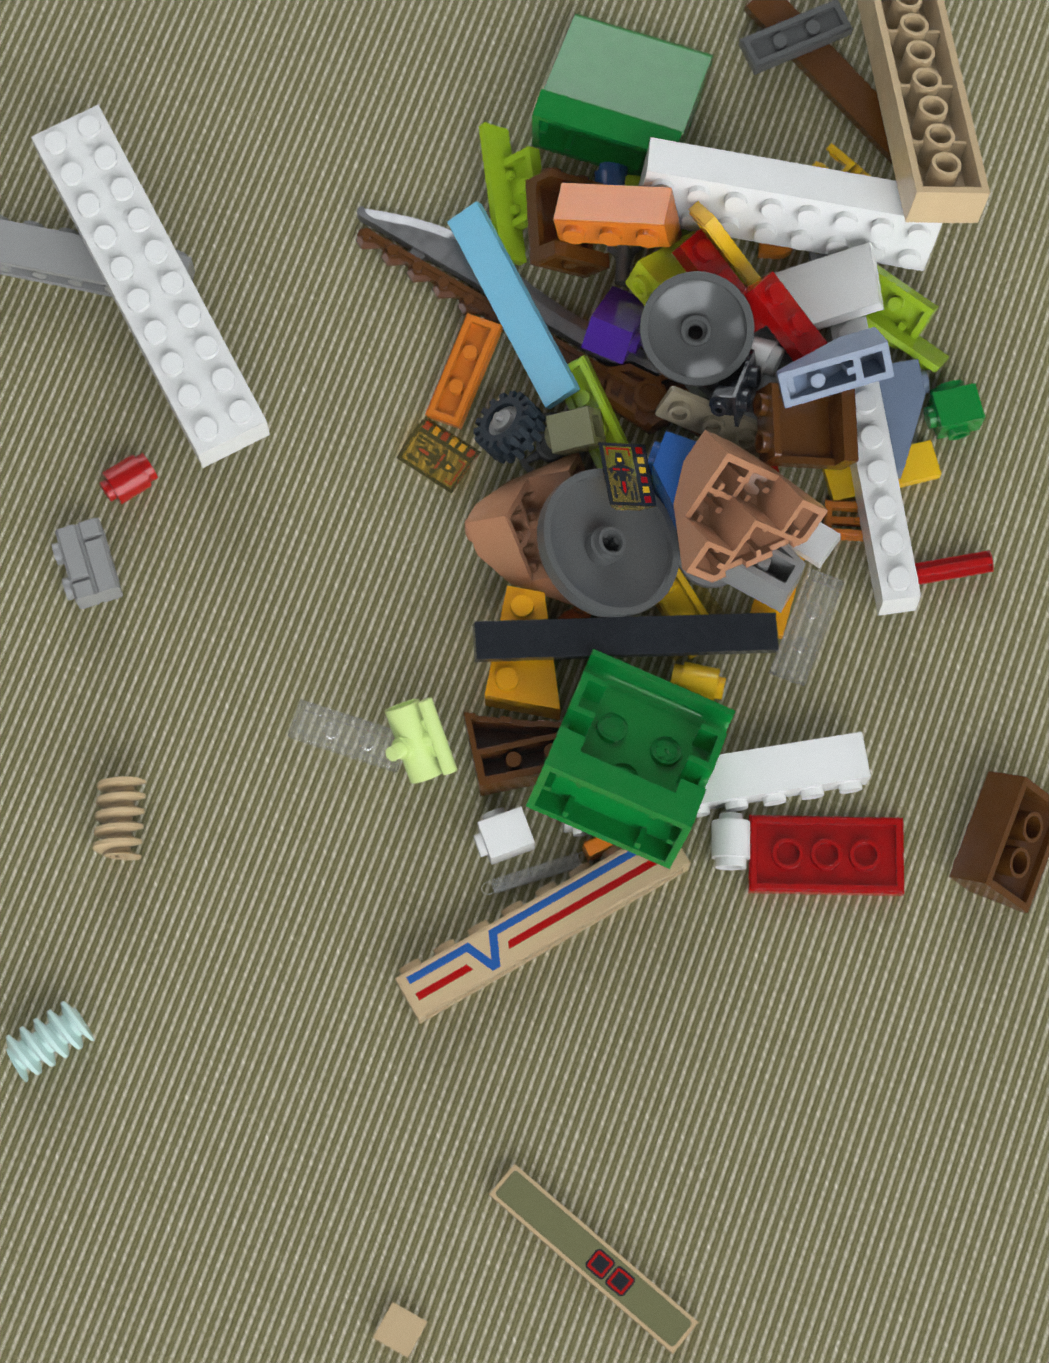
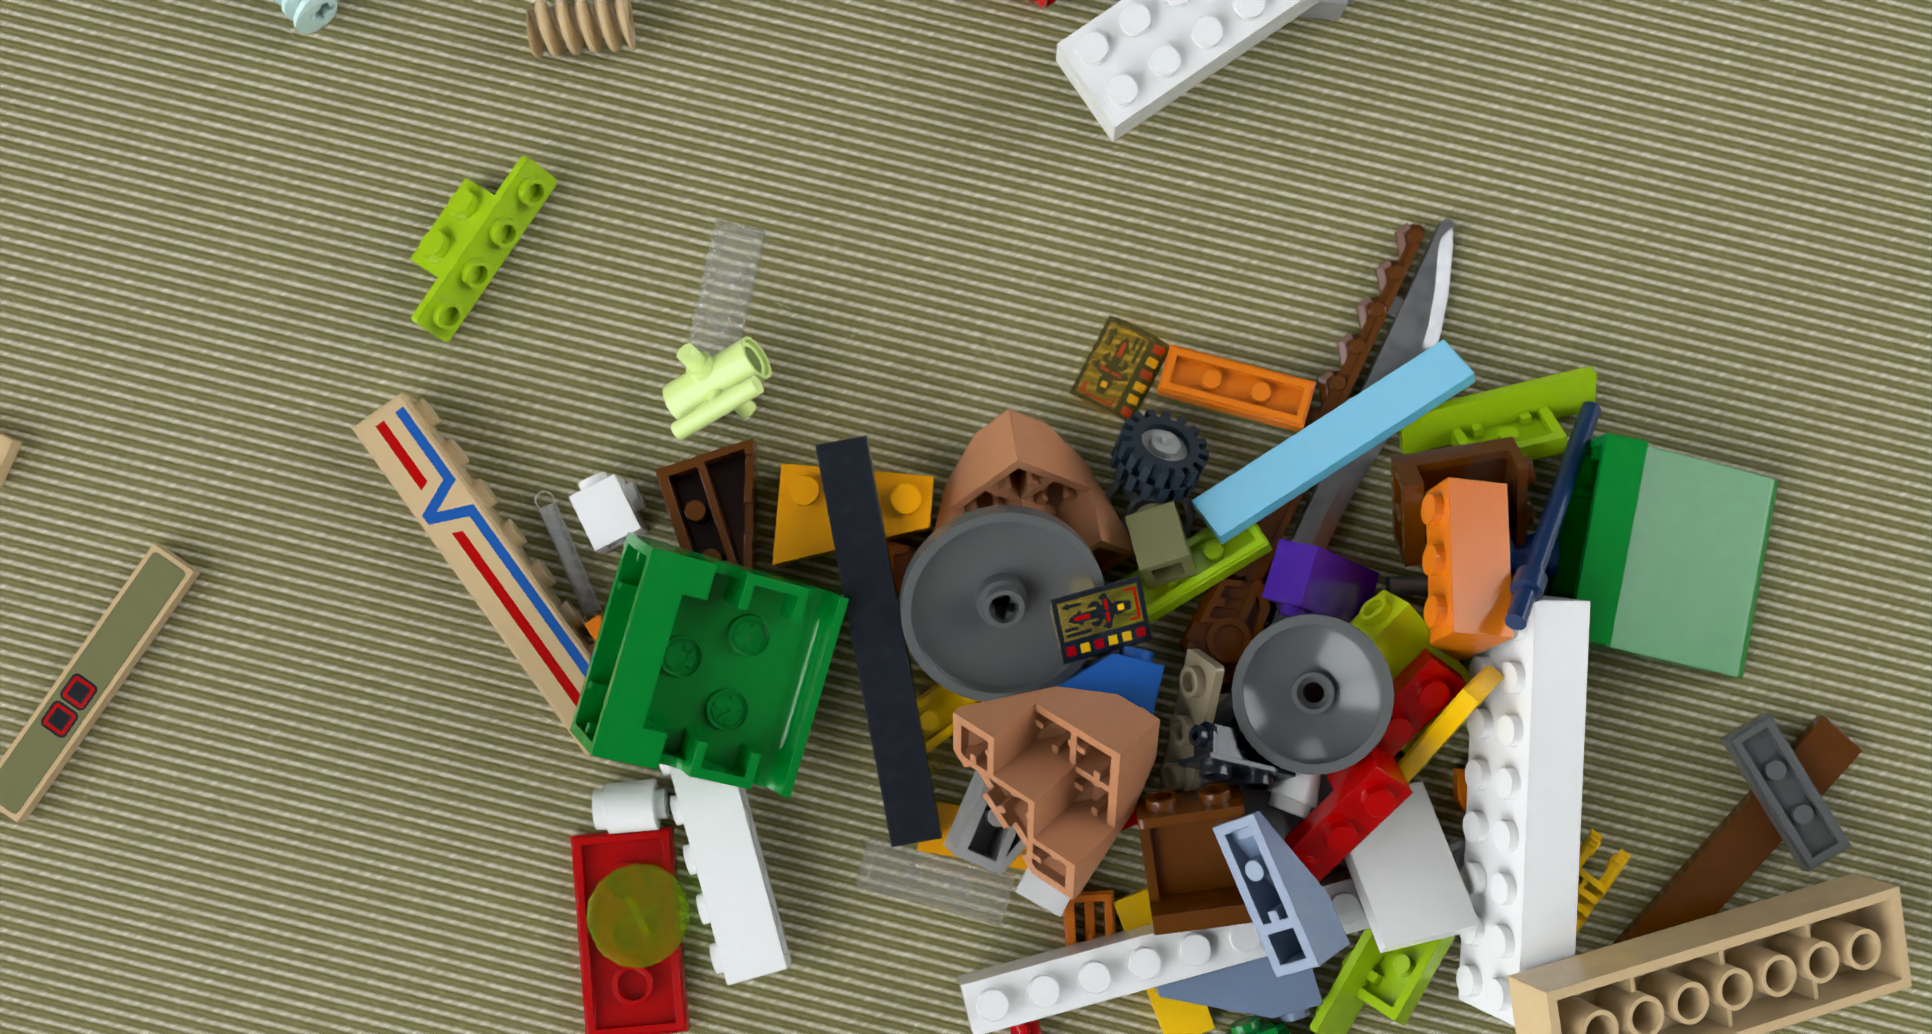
camera: 85 degrees right, 10 degrees up
(278, 923) = (474, 241): none -> lime bracket
(631, 171) = (1531, 578): none -> dark blue bar
(699, 679) = (838, 742): yellow brick -> none
(813, 842) = (638, 915): none -> clear neon green tile

